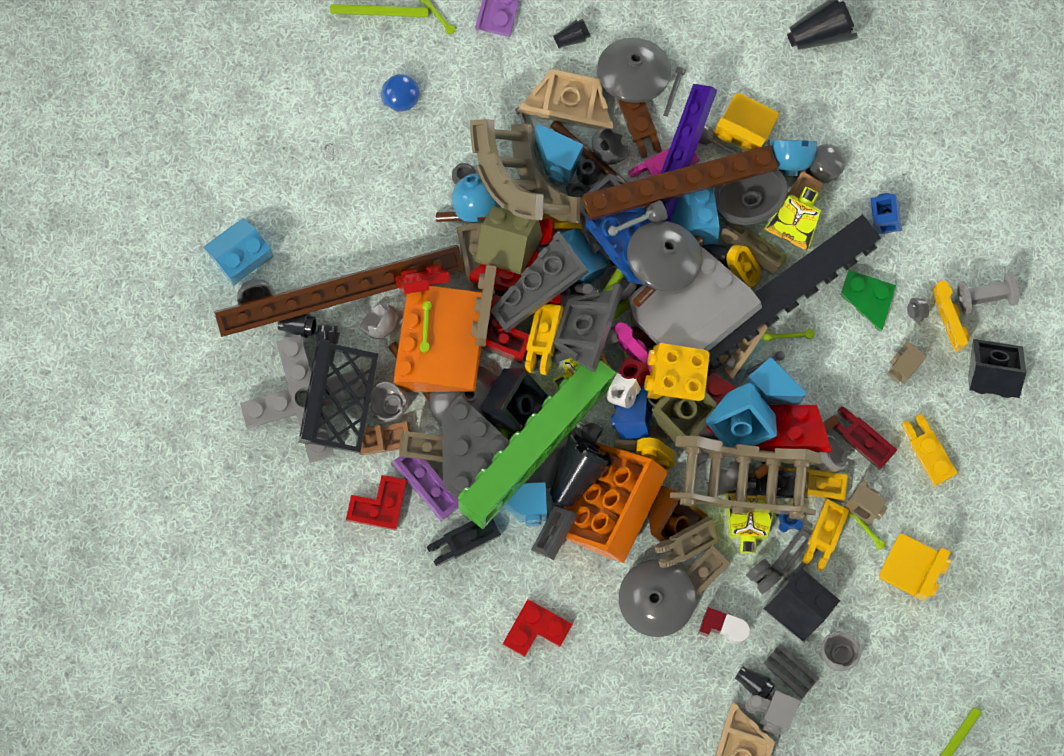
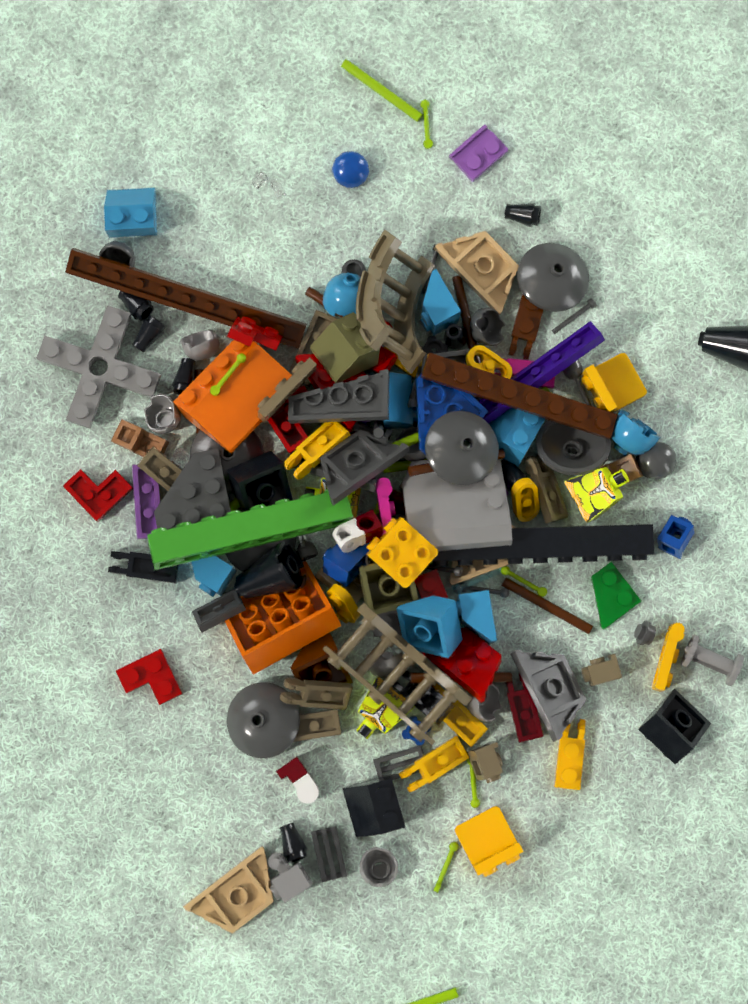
camera: 40 degrees right, 5 degrees up
(317, 389) = (106, 368): black fence -> none
(386, 359) = (184, 375): none -> black cone
(632, 171) = (489, 361): none -> yellow plate
(655, 212) = (478, 407): hinge -> none
(759, 571) = (357, 757): dark grey wheel -> none
(822, 342) = (547, 605): none -> reddish brown bar
(875, 405) = (551, 688): none -> dark grey wing
(888, 592) = (453, 846): none -> lime hinge

